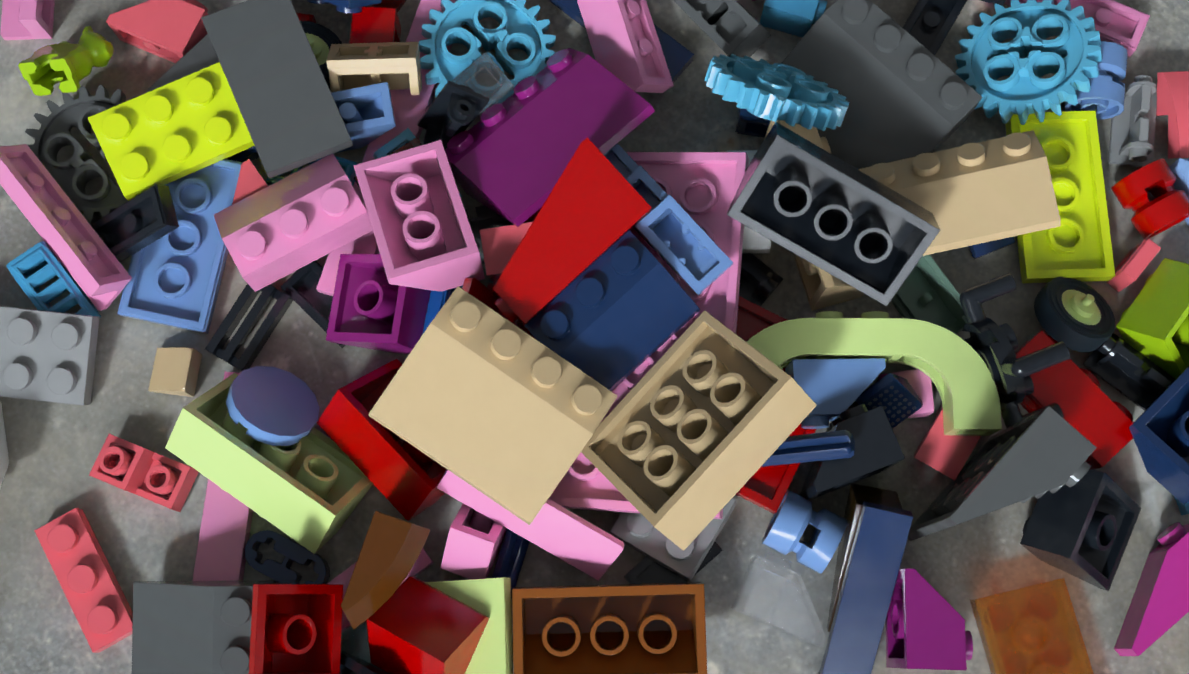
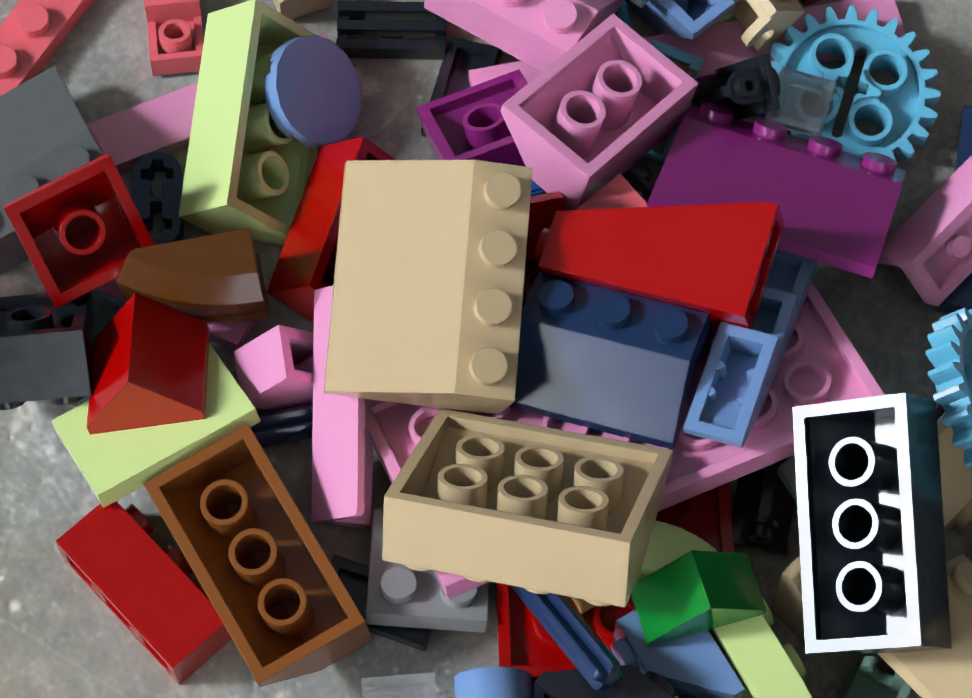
camera: 60 degrees right, 10 degrees down
(815, 350) = (696, 595): none -> green slope

